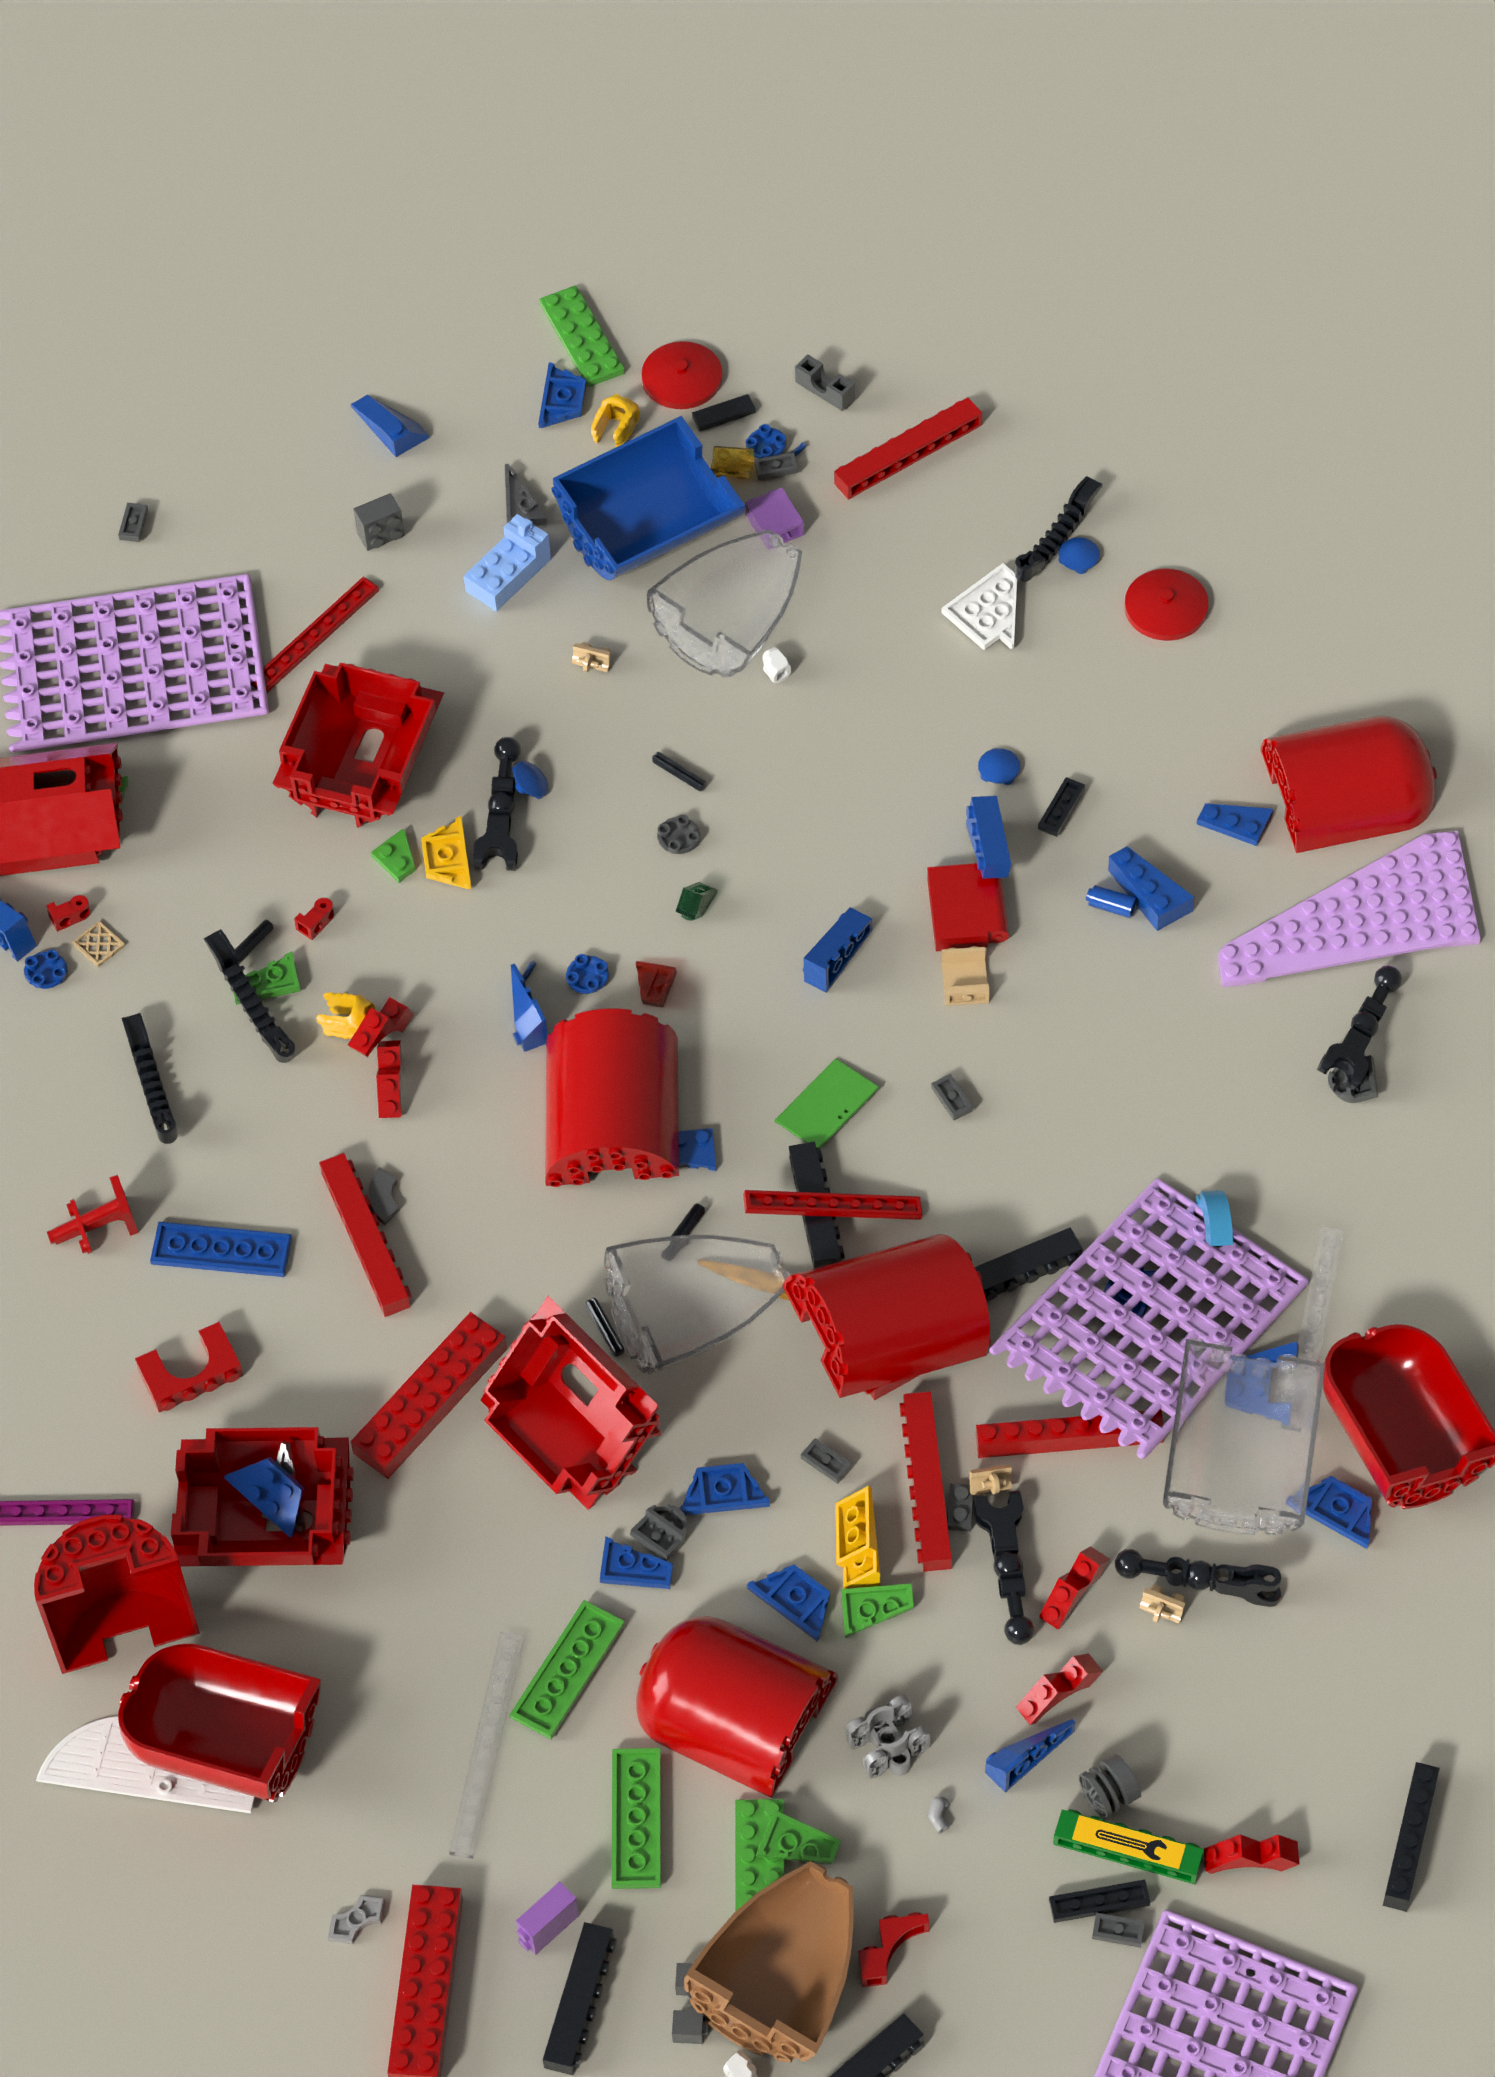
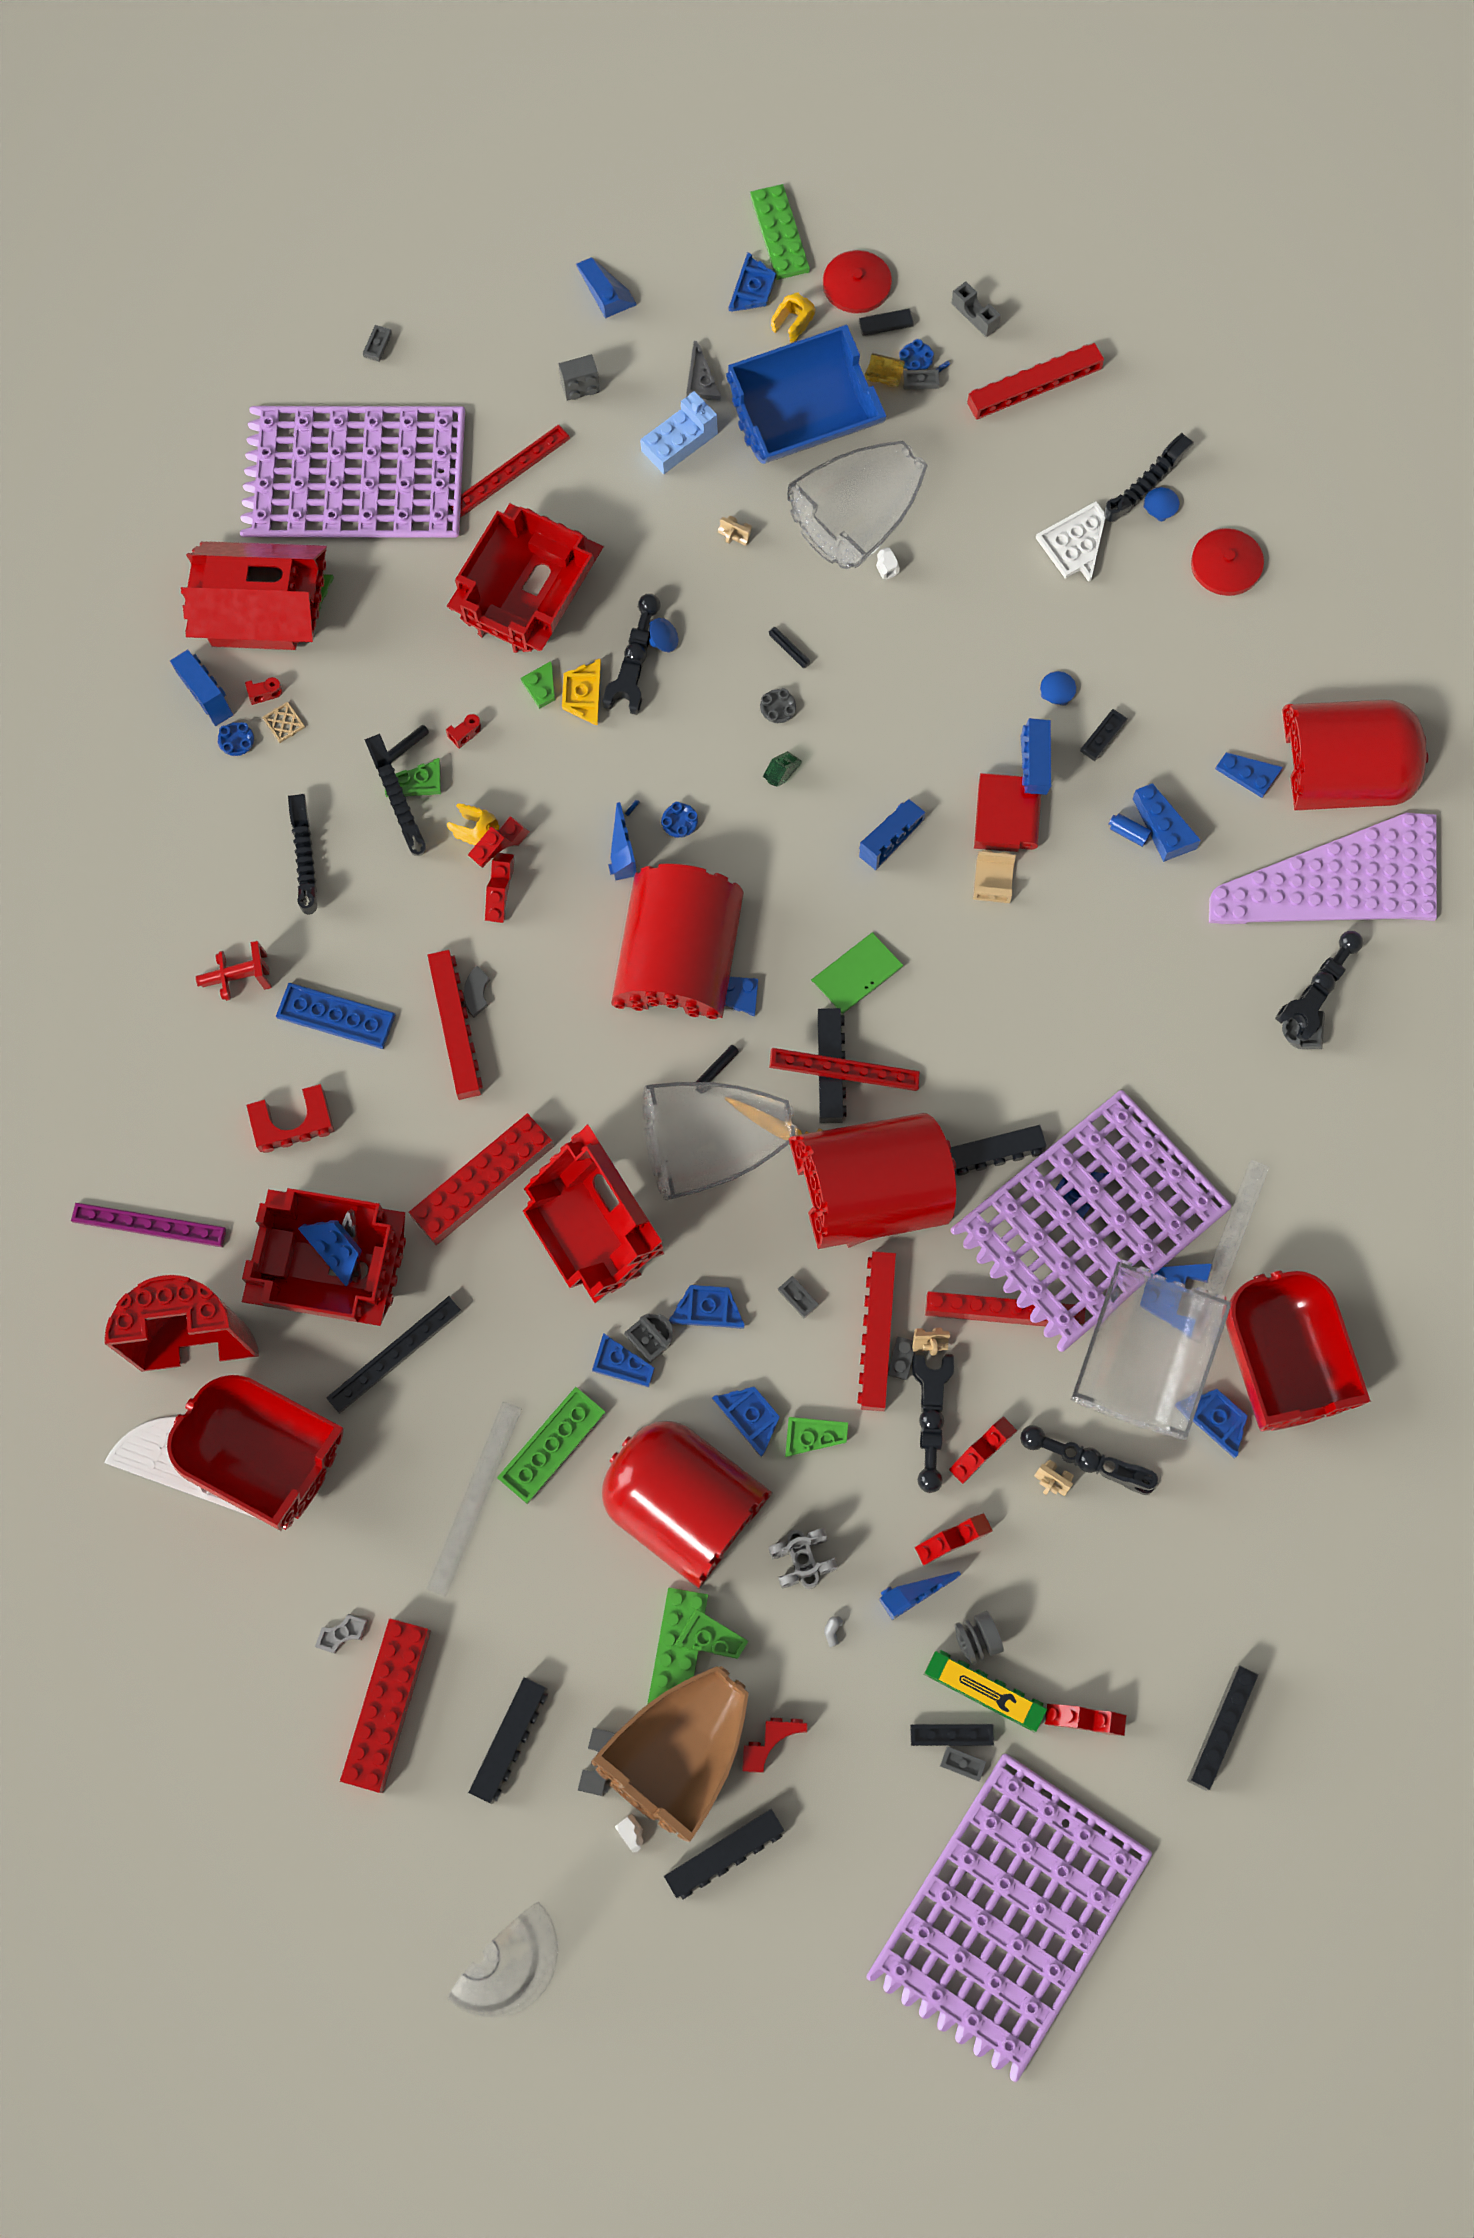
camera: 10 degrees right, 15 degrees up
(361, 1603) = (394, 1354): none -> black plate
(547, 1918) = (493, 1668): medium lavender brick -> none
(605, 1327) = (637, 1142): black axle -> none
(636, 1818) = (584, 1588): bright green plate -> none
(655, 982) = (734, 837): clear red wing -> none
(775, 513) = (911, 425): medium lavender brick -> none
(857, 1540) = (810, 1374): yellow slope -> none
(952, 1097) = (963, 985): dark grey plate -> none
(1216, 1217) = (1165, 1138): dark azure arch -> none

